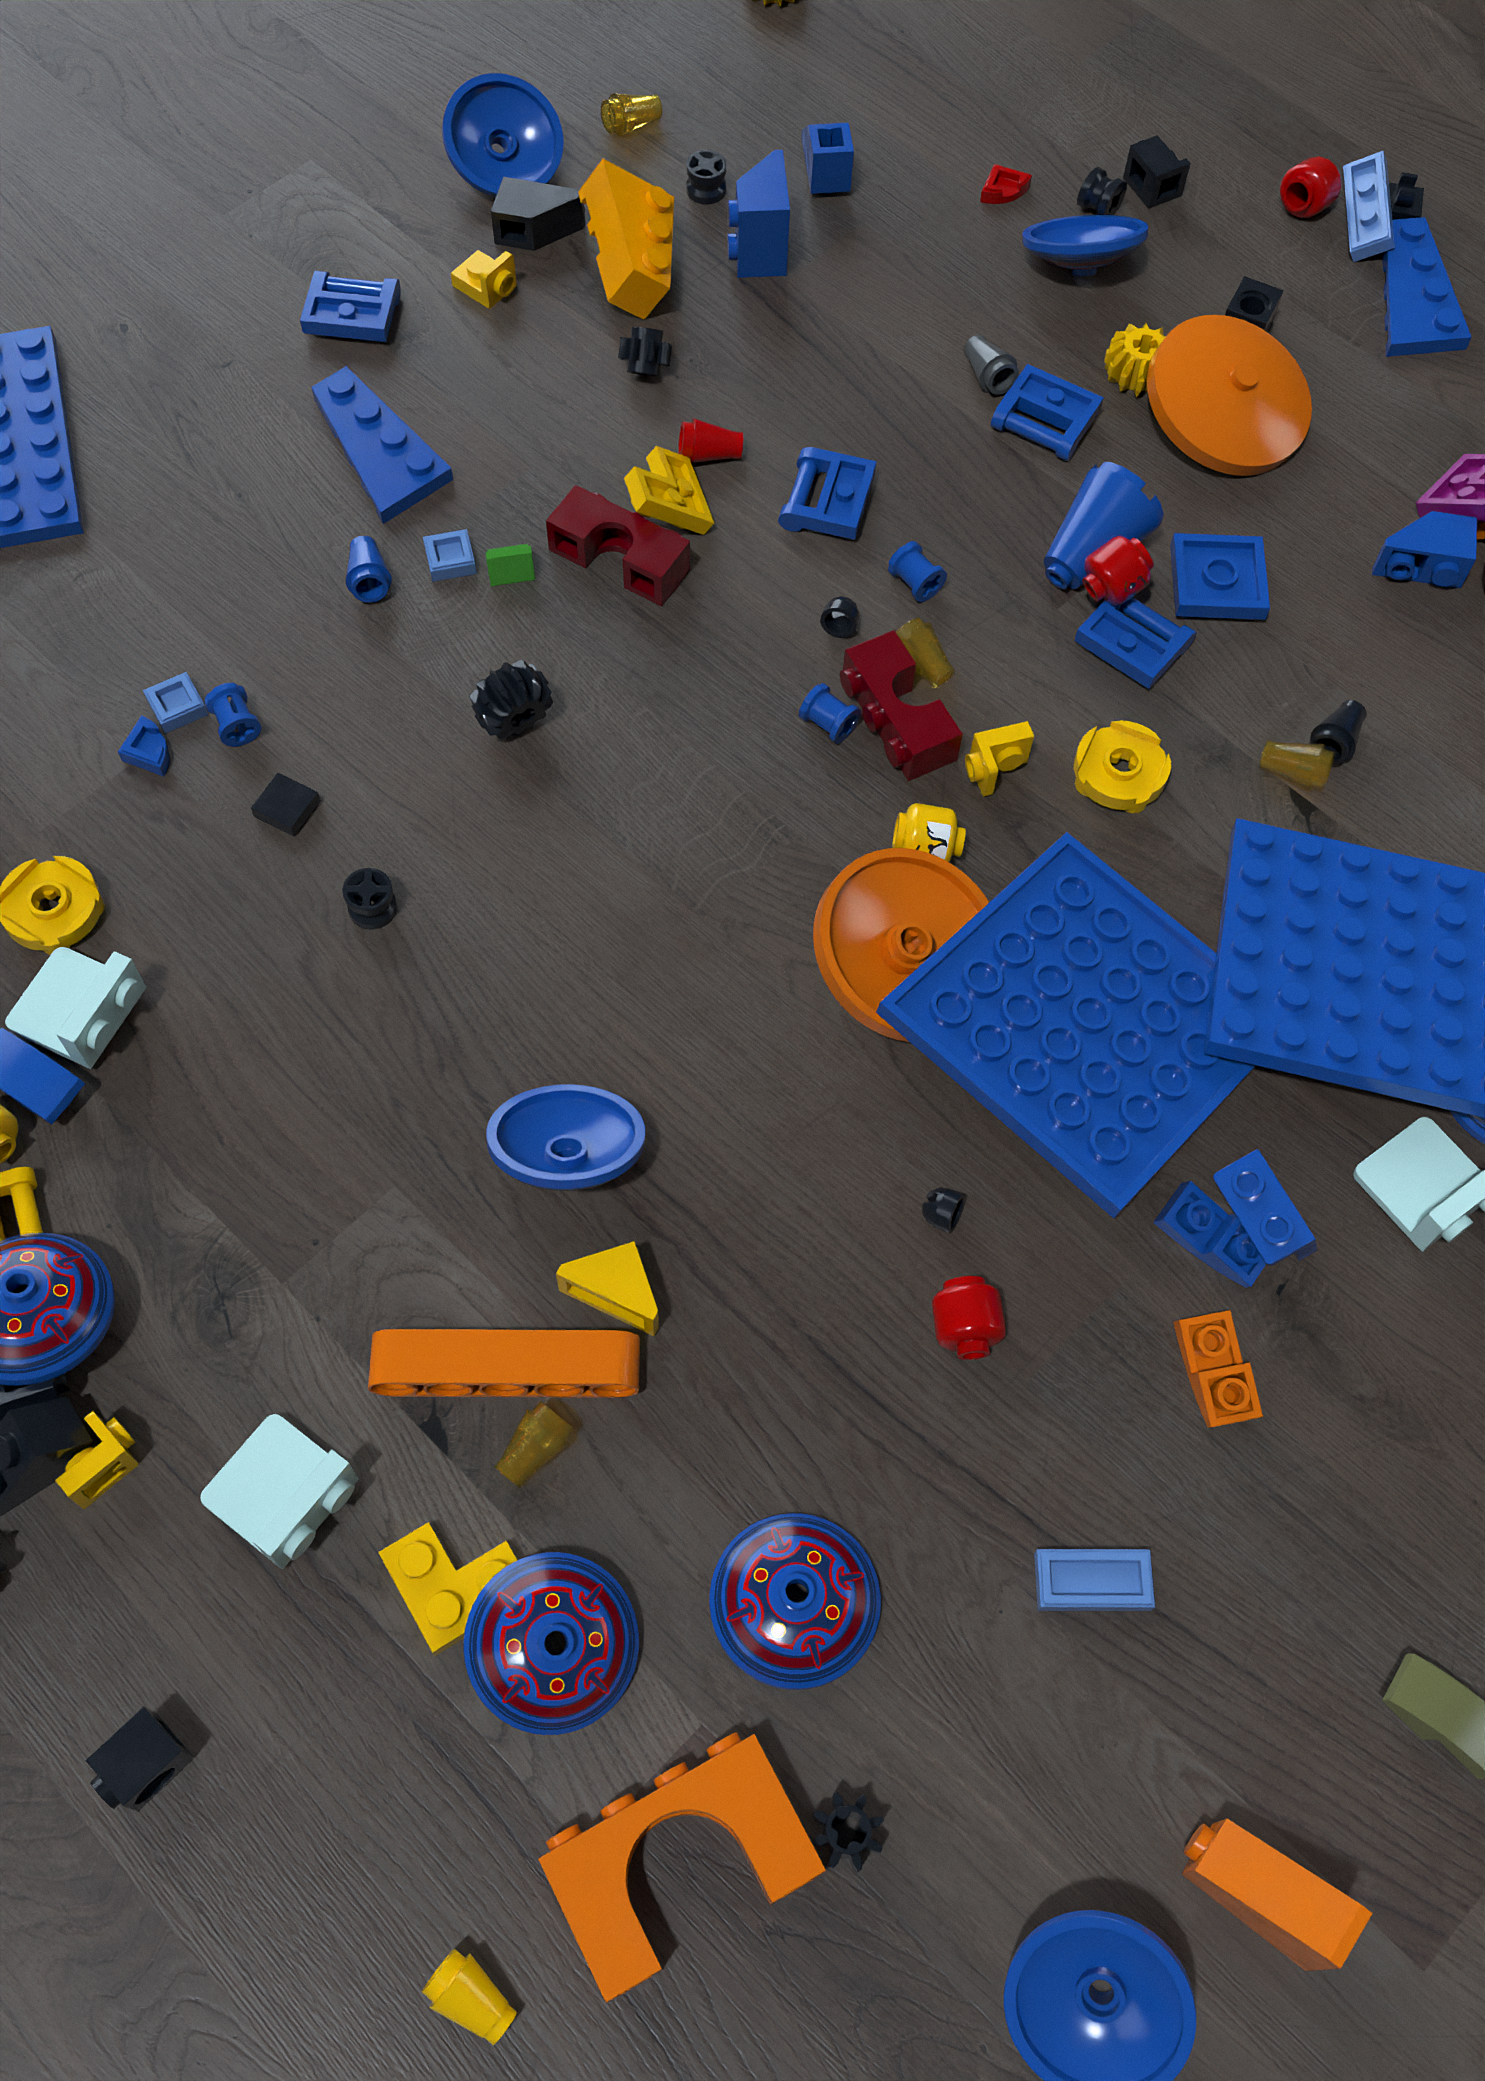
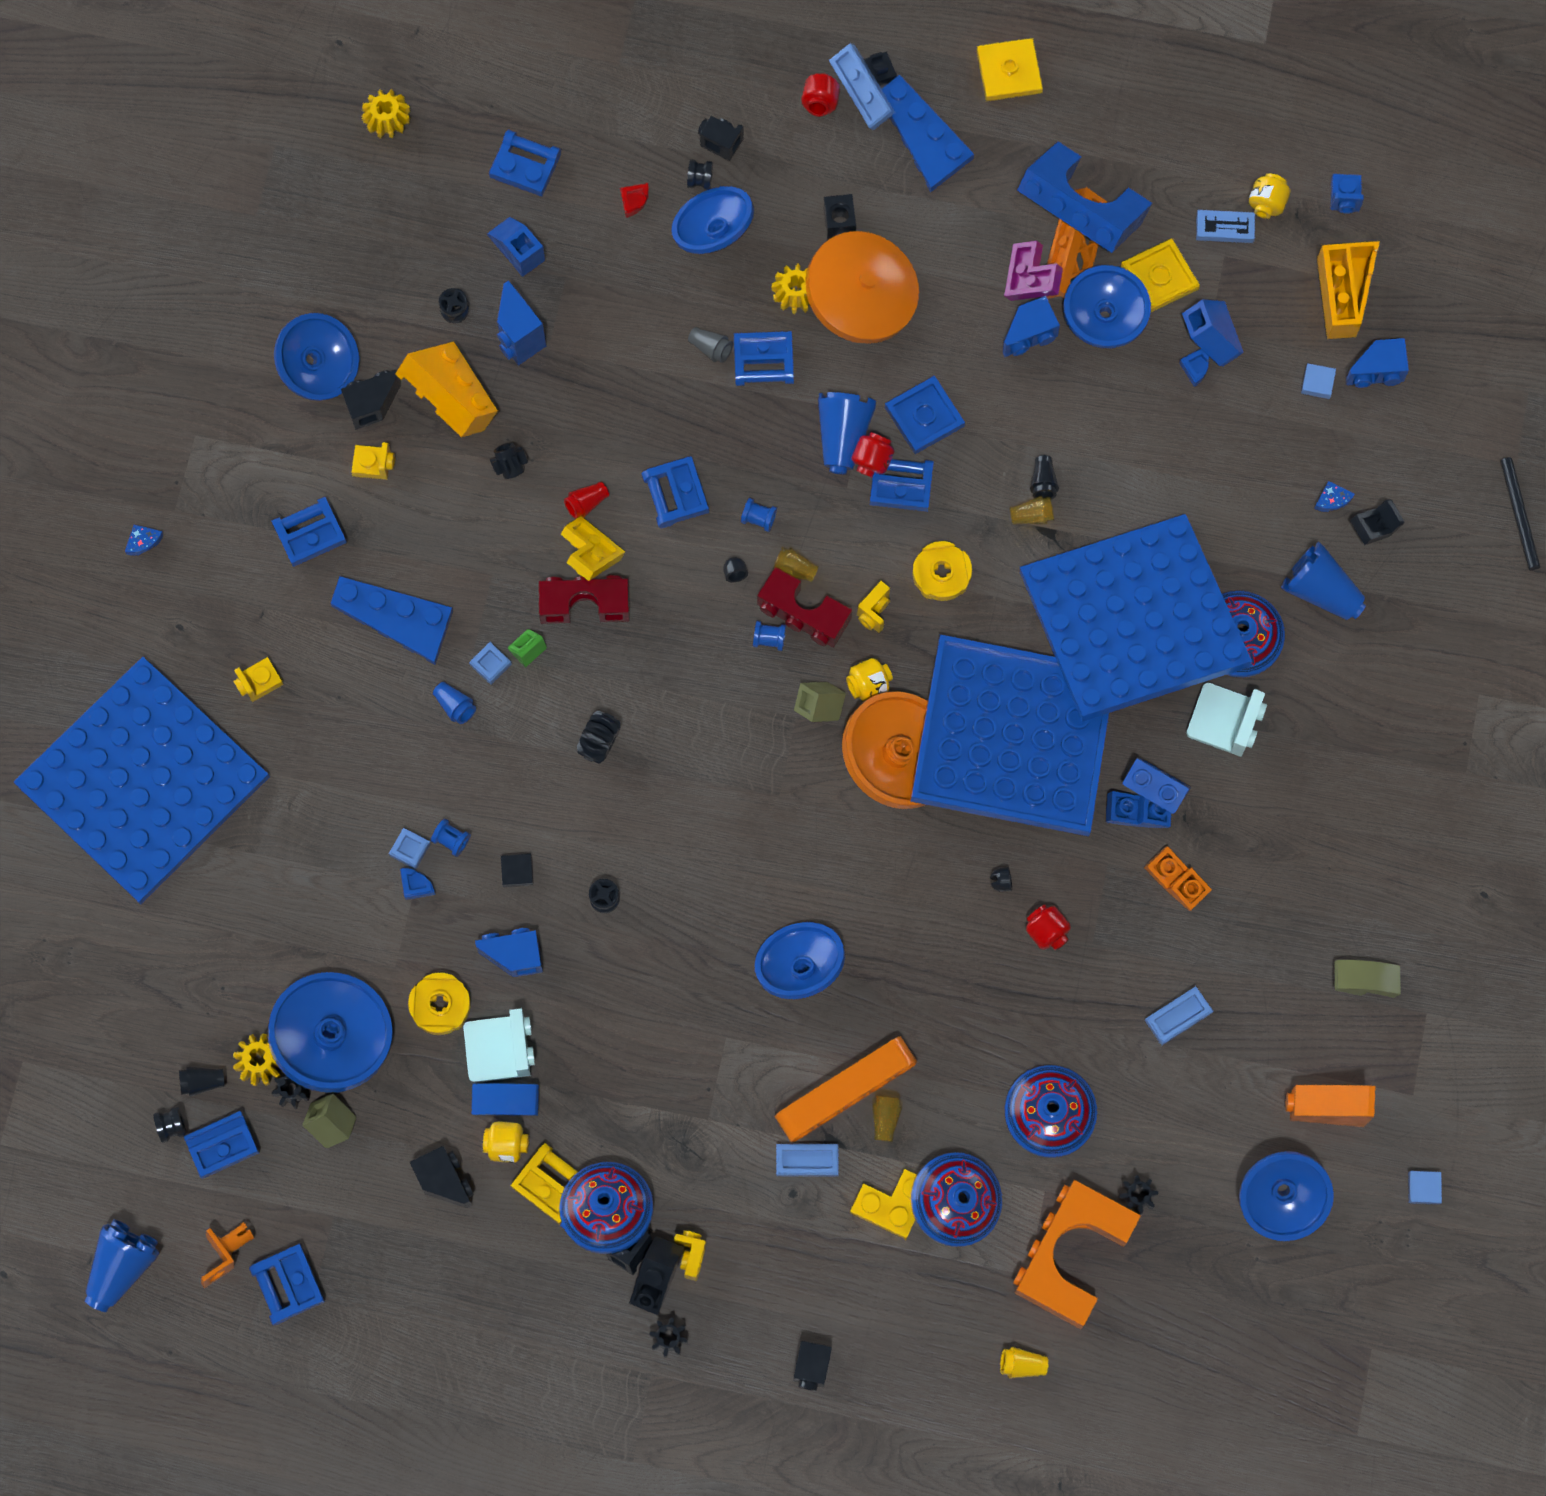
camera: 30 degrees left, 10 degrees up
(156, 421) = (257, 680): none -> yellow bracket
(158, 218) = (142, 540): none -> blue tile
(197, 899) = (513, 953): none -> blue slope
(279, 1490) = (784, 1213): light aqua bracket -> none
(375, 1433) = (806, 1159): none -> medium blue tile
(612, 1284) = (873, 1018): yellow slope -> none
(629, 111) = (371, 284): clear yellow cone -> none
(840, 827) = (819, 701): none -> olive panel
(891, 101) = (522, 171): none -> blue plate

